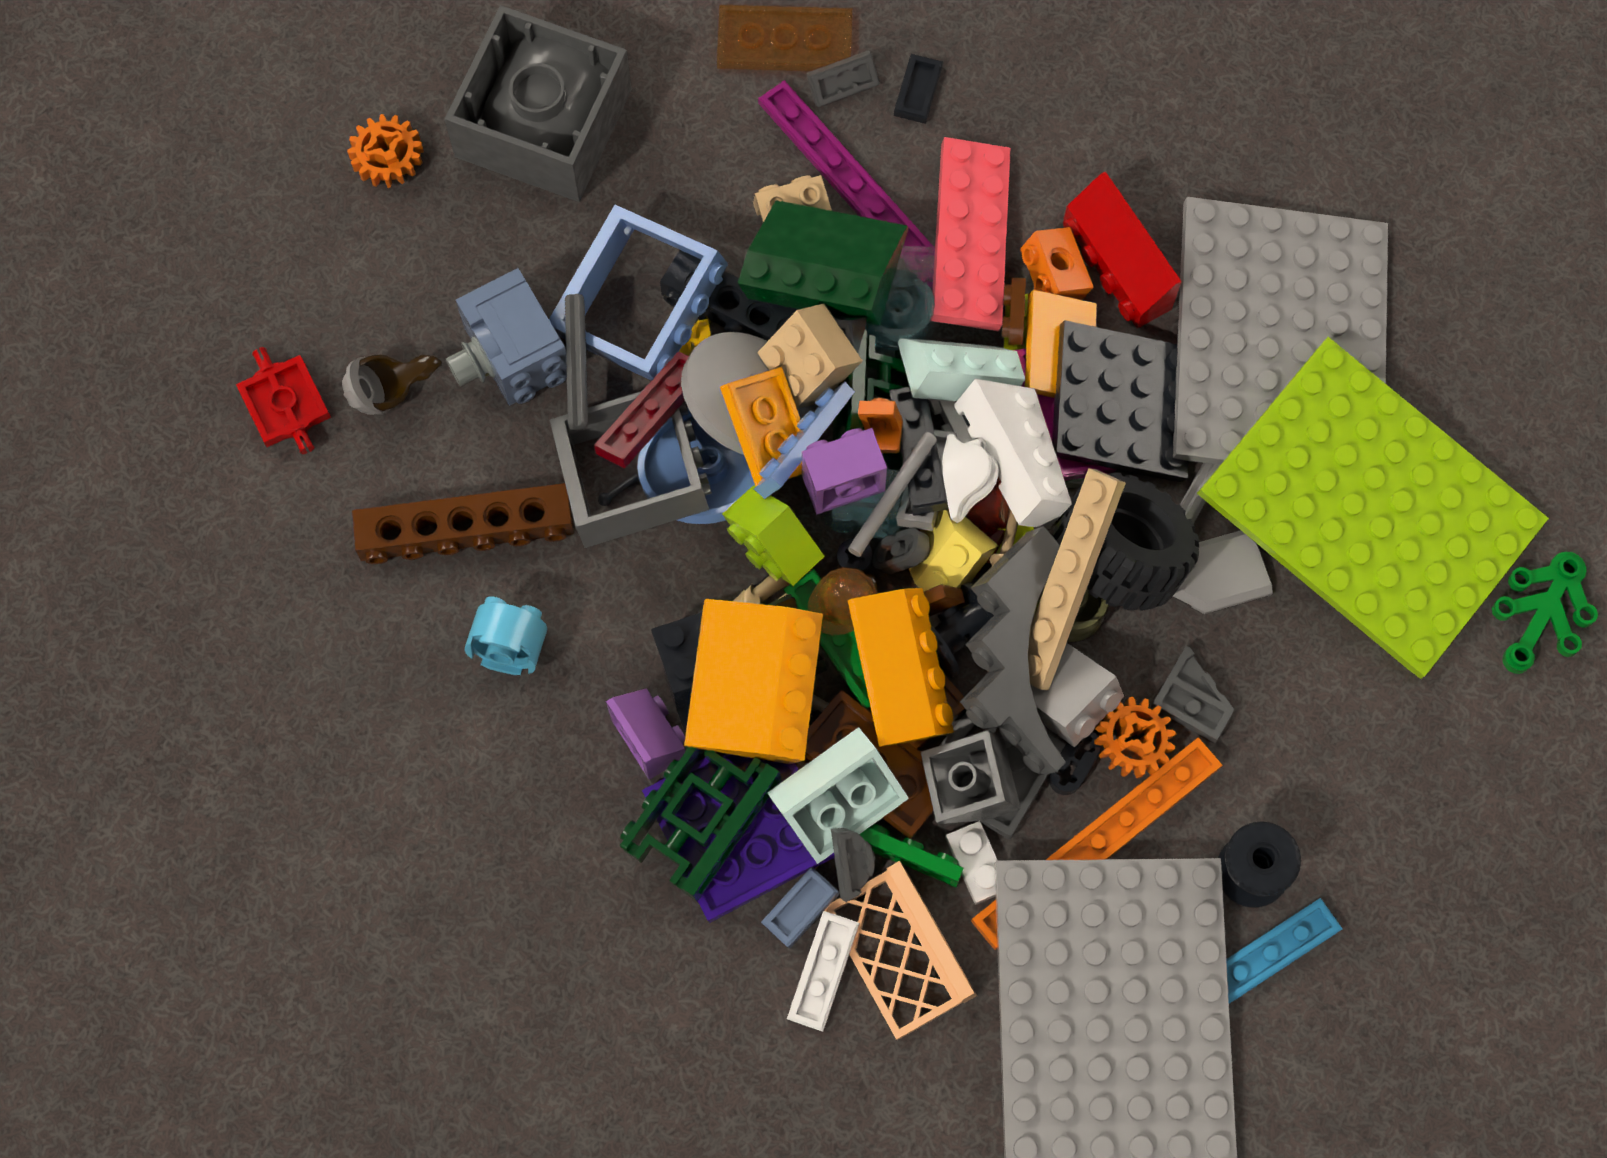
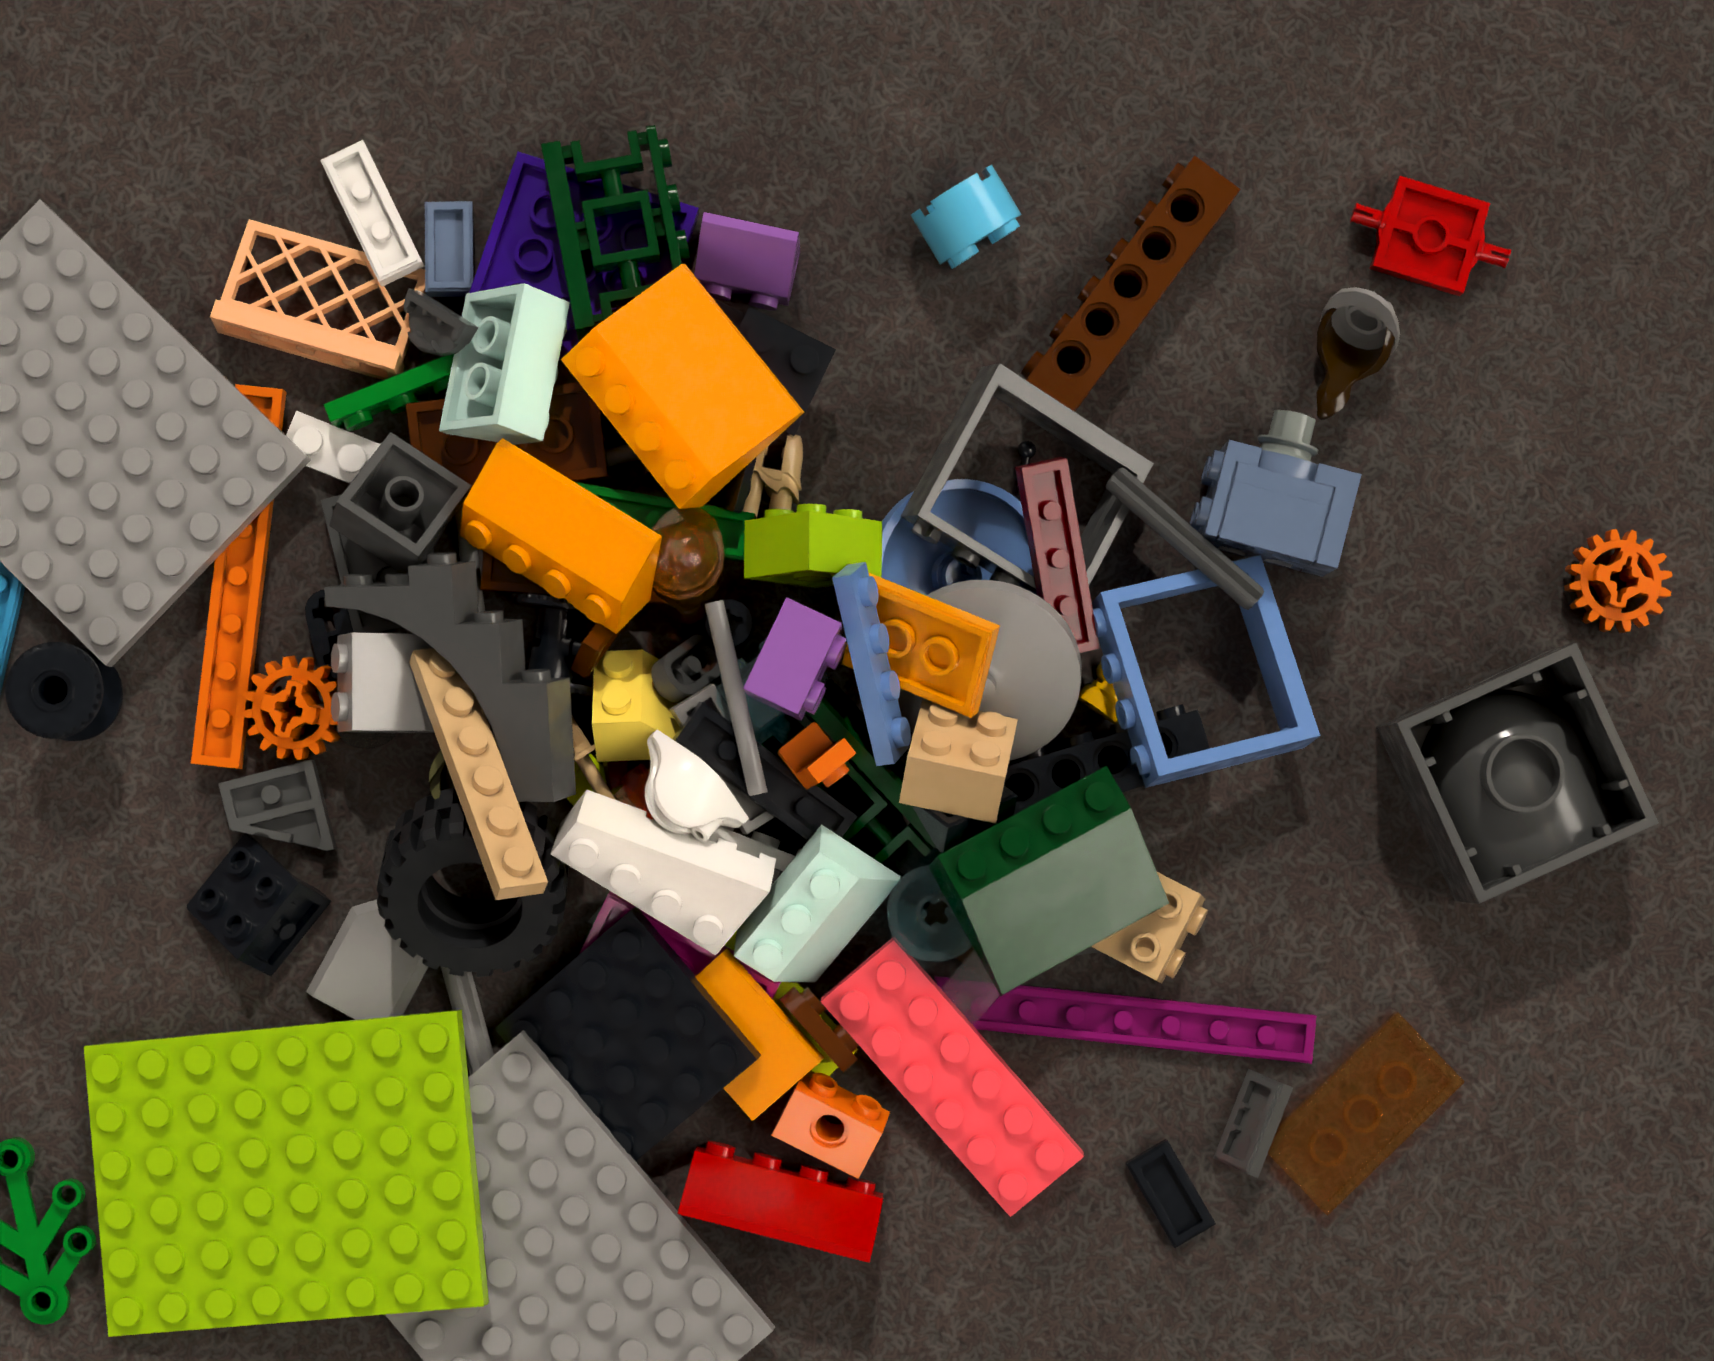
camera: 130 degrees right, 15 degrees up
(1258, 661) = (256, 906): none -> black bracket

